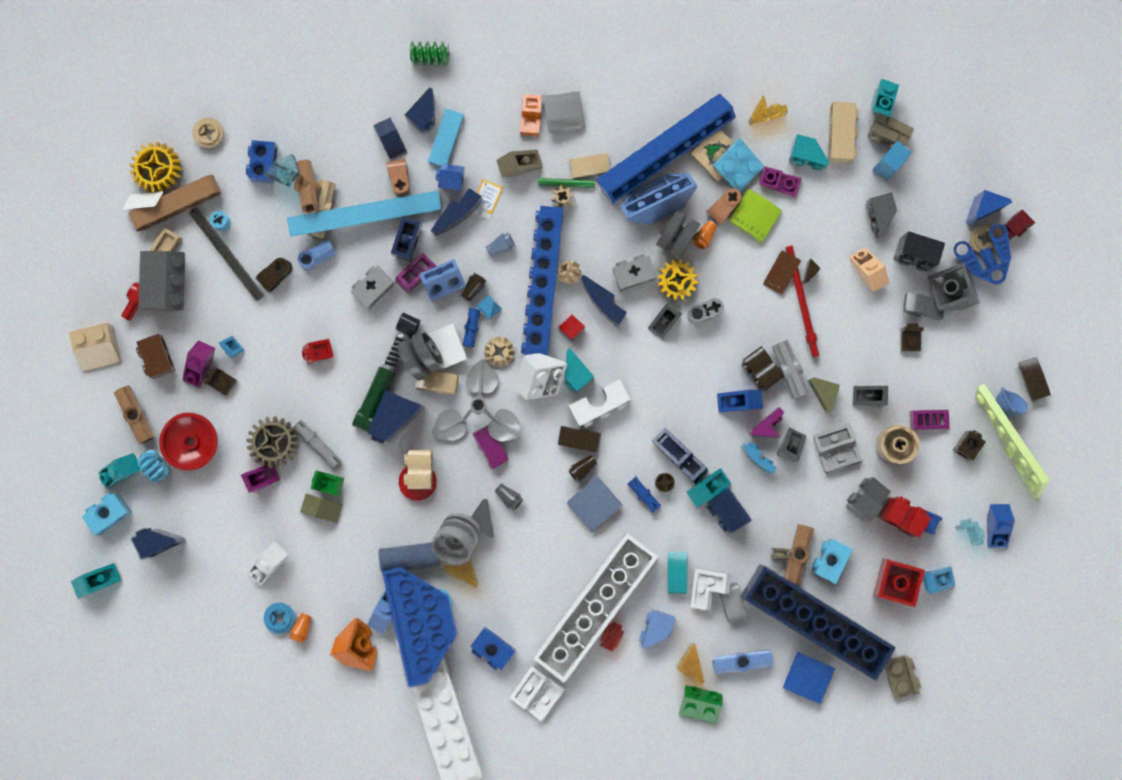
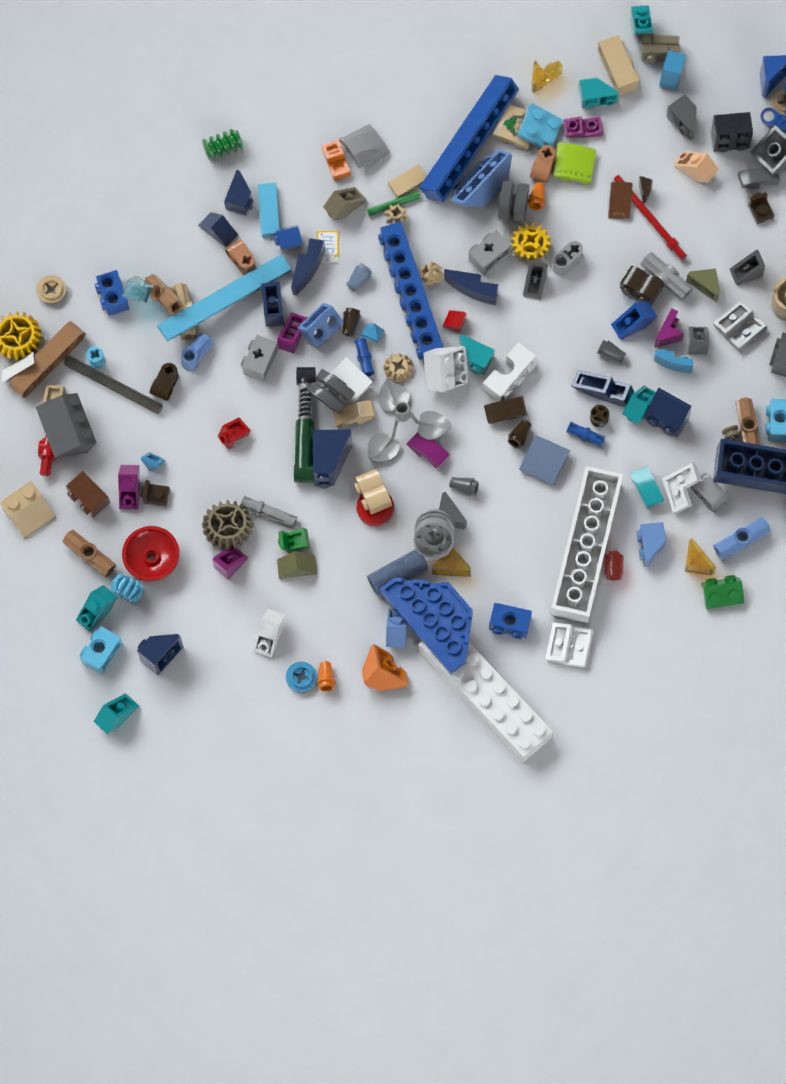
camera: 15 degrees left, 15 degrees down
(704, 423) = (611, 351): none -> dark grey cone

